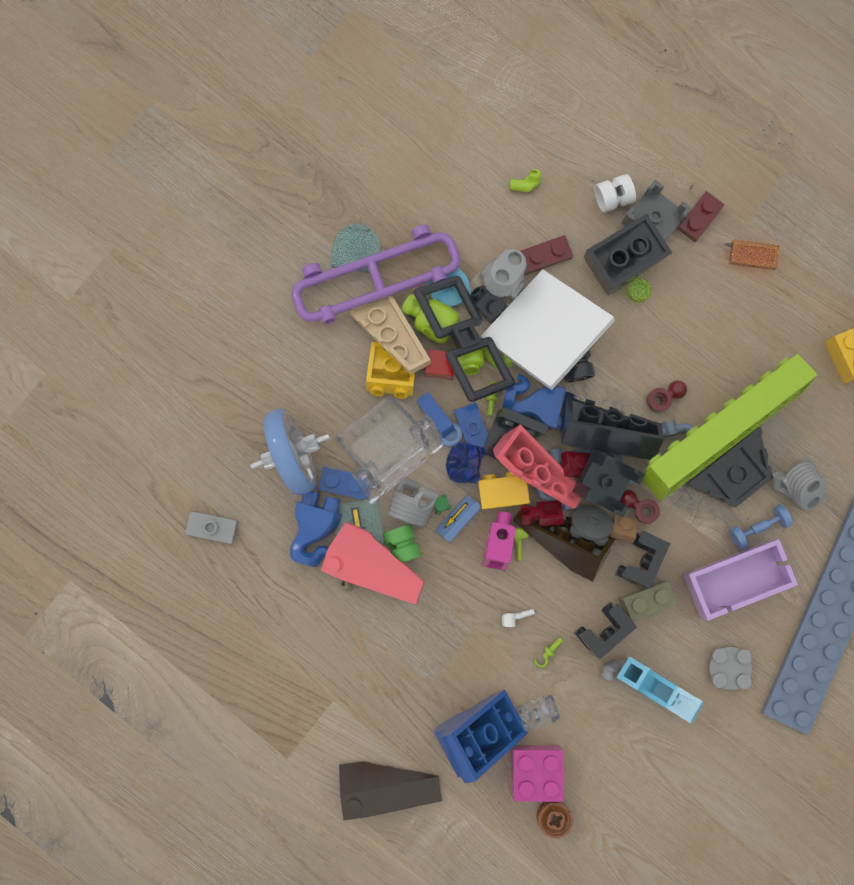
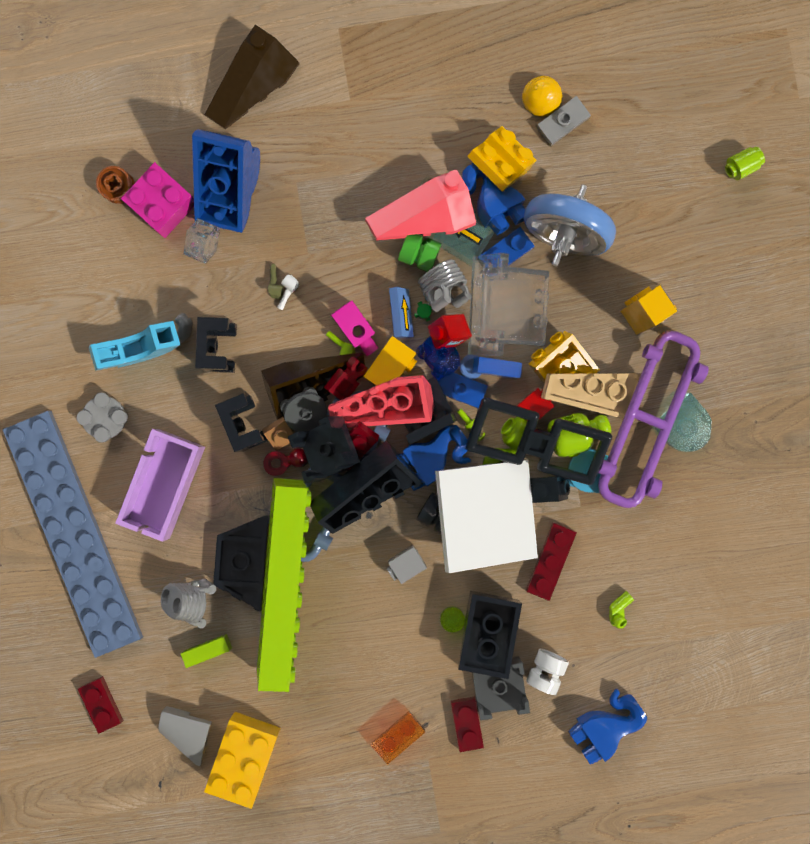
camera: 130 degrees right, 5 degrees up
(130, 370) = (744, 163): none -> lime brick
(206, 559) = (542, 96): none -> yellow piece
(281, 545) = (502, 158): none -> yellow plate
(297, 342) = (648, 309): none -> yellow wedge
(441, 471) = (449, 331): none -> red brick
(505, 274) = (559, 522): light grey piece -> none
(524, 627) = (274, 290): none -> olive hand
(549, 651) = (239, 292): lime hand -> none
(615, 120) = (606, 728): none -> blue hips
(632, 354) = (406, 564): none -> light grey brick
(647, 600) = (208, 394): olive brick -> none
(676, 390) = (348, 575): dark red plate -> none
(781, 516) = (177, 563): medium blue wheel -> none
(822, 441) = (206, 651): none -> lime piece

